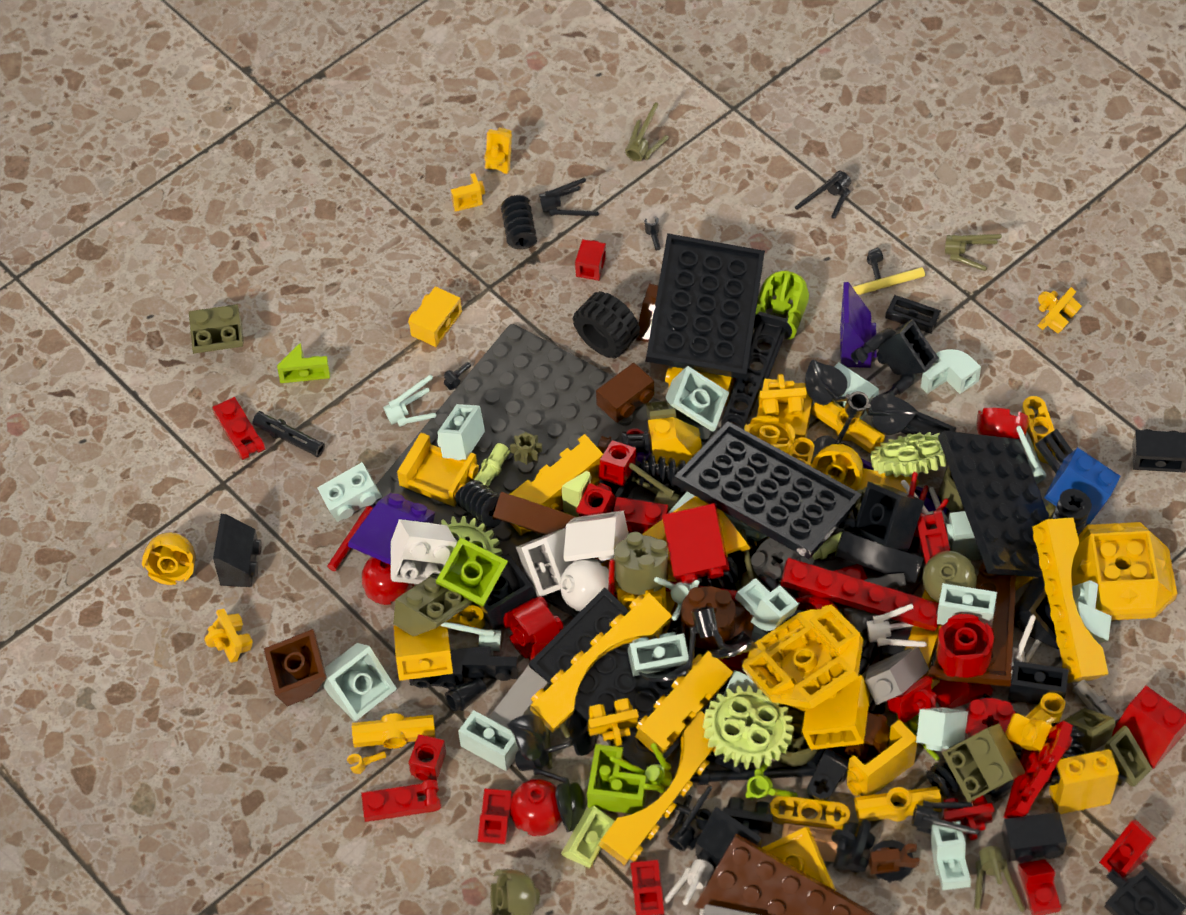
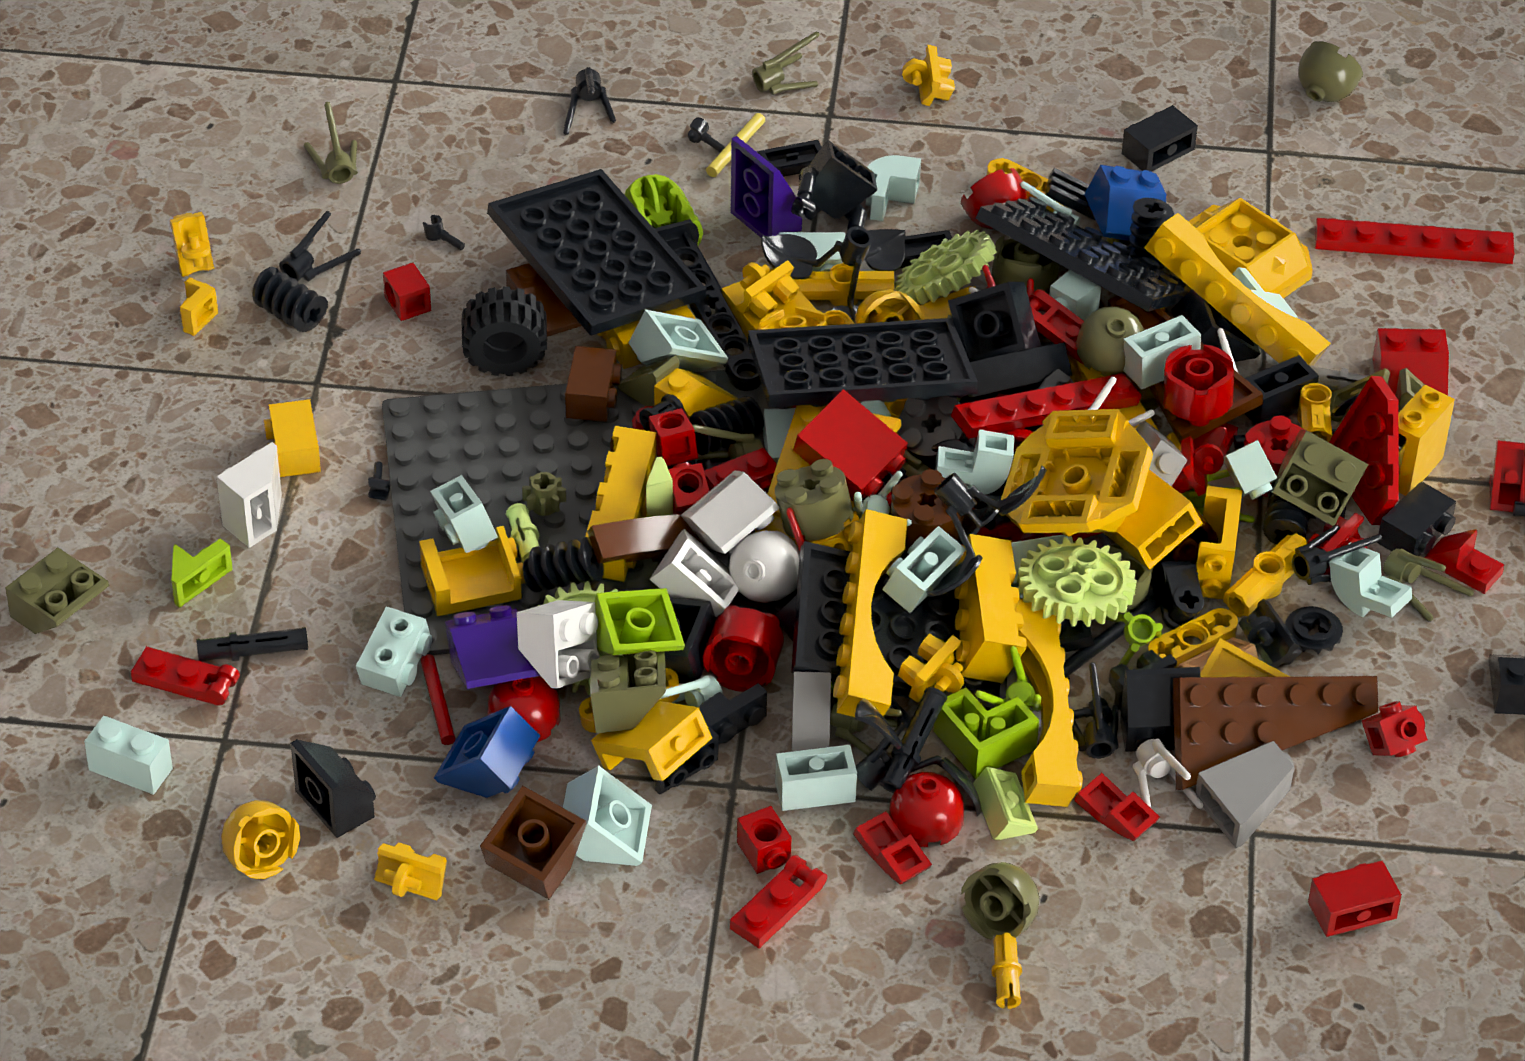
camera: 45 degrees left, 10 degrees down
(159, 458) = (128, 754): none -> light aqua brick
(338, 594) = (489, 754): none -> blue slope
(358, 769) = (695, 891): yellow hand -> none
(372, 340) = (251, 496): none -> white slope
(392, 730) = (697, 841): yellow piece -> none
(397, 410) = (355, 548): light aqua plant -> none
(463, 694) = (733, 761): black cone -> none
(587, 744) = (913, 739): none -> black pin
(889, 860) = (1320, 620): reddish brown plate -> none
(1027, 733) = (1335, 422): yellow bracket -> none

